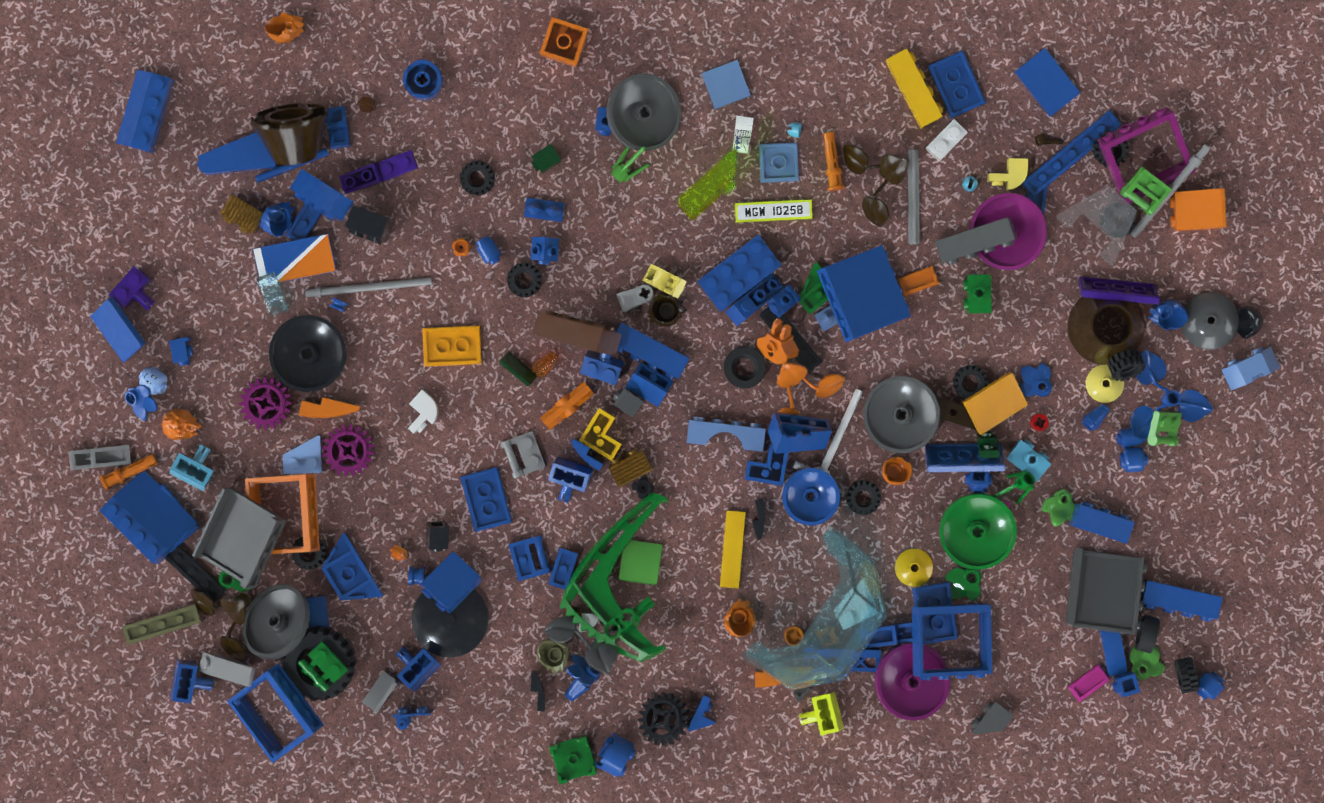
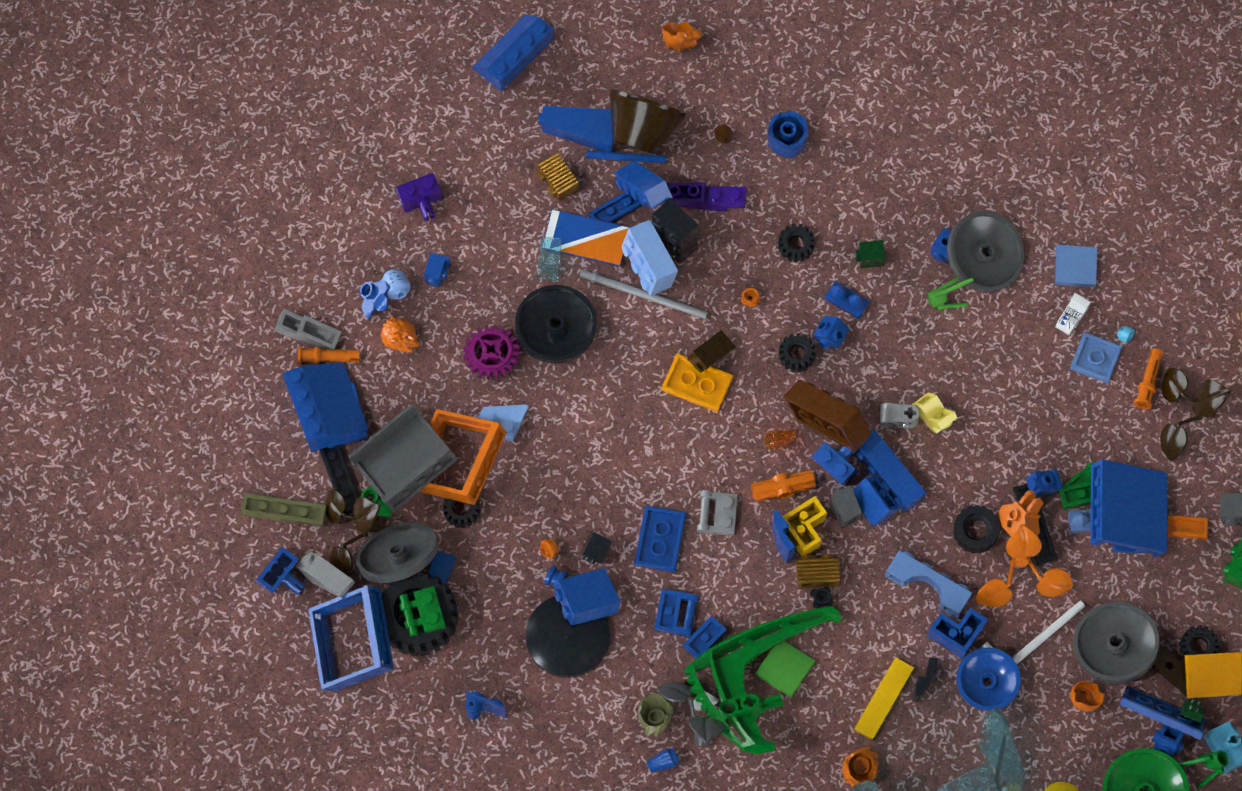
camera: 20 degrees right, 20 degrees down
(117, 329) = (387, 223): blue tile -> none
(192, 470) = (389, 380): medium azure brick -> none
(277, 219) = (588, 193): blue hair -> none
(327, 409) = (549, 384): orange slope -> none
(337, 462) = (555, 426): magenta gear -> none
(338, 127) = (686, 143): blue slope -> none
(338, 304) = (607, 295): blue bush -> none
(349, 573) = (490, 545): blue wing -> none
(359, 259) = (649, 258): none -> light blue brick
(380, 692) = (463, 674): light grey panel -> none
(417, 668) = (512, 665): blue brick -> none
(428, 411) = (643, 429): white brick -> none
(451, 316) = (711, 351): none -> dark brown hinge
(488, 250) = (775, 311): blue brick -> none
(518, 369) = (750, 431): dark green slope -> none
(536, 686) = (621, 740): black slope -> none
(564, 42) = (938, 159): orange brick -> none
(570, 476) = (754, 551): blue brick -> none
(583, 671) = (678, 746): blue plate -> none
(665, 310) = (922, 439): dark brown hair -> none
(710, 186) = (1038, 328): clear neon green windscreen -> none
(739, 273) = (1011, 438): blue brick -> none
(754, 299) = (1011, 470): blue slope -> none
(773, 211) = (1071, 399): tile -> none
(798, 433) = (1004, 610): blue wedge -> none
(863, 509) = (1041, 695): black tyre -> none
(913, 197) = (1216, 446): light grey axle -> none

